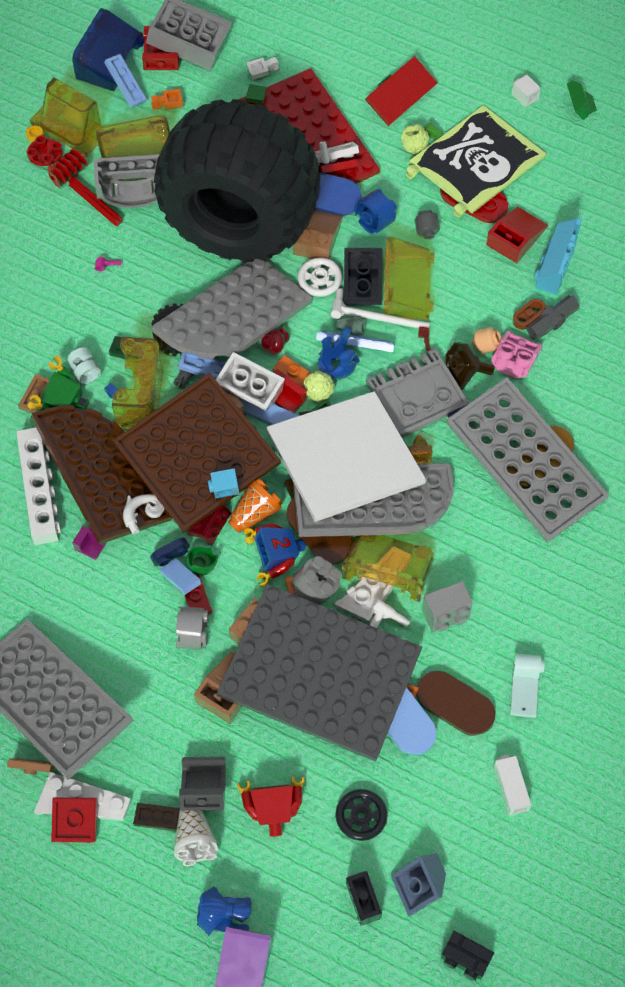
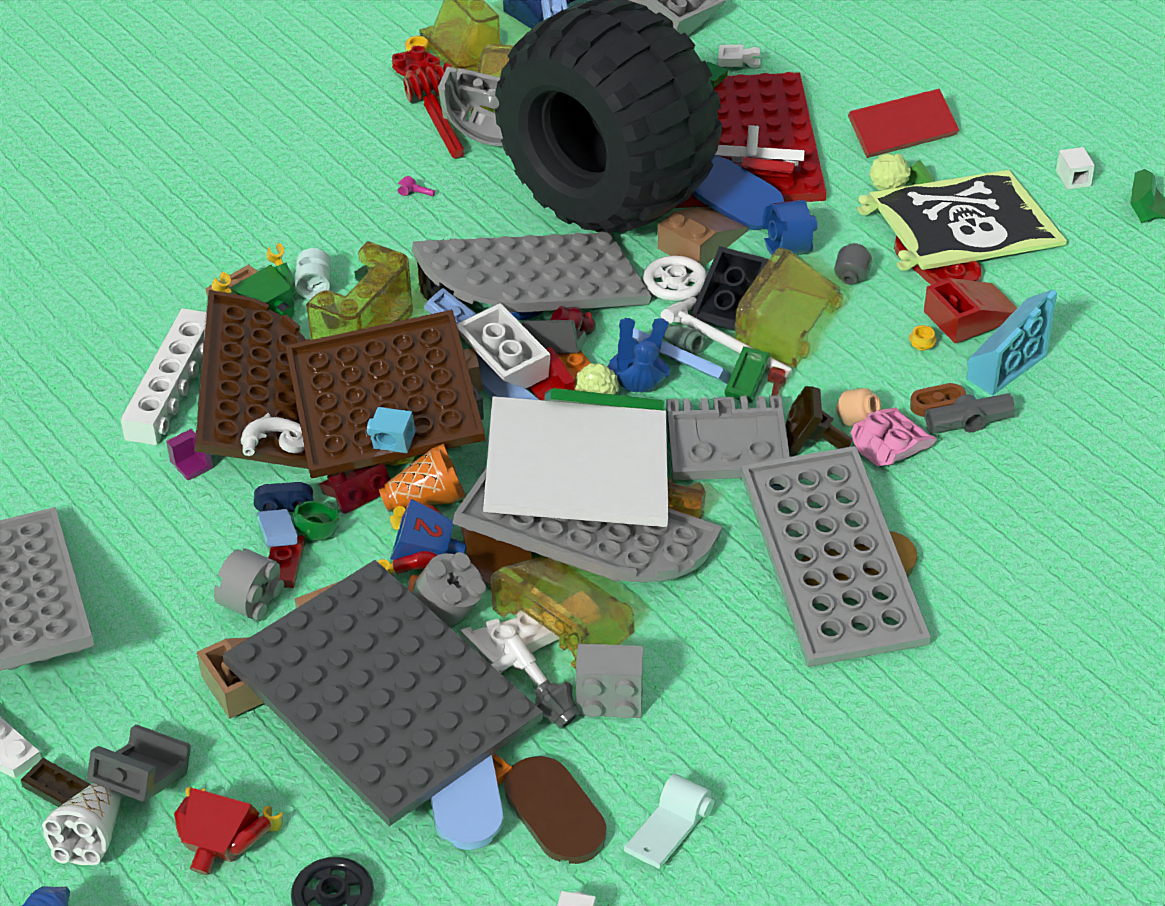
camera: 25 degrees right, 20 degrees down
(275, 359) = (557, 334): none -> dark grey panel
(332, 399) = (592, 398): none -> green tile
(405, 339) = (747, 374): none -> green tile
(421, 633) = (556, 702): none -> dark grey rock
(496, 263) = (922, 337): none -> yellow plate

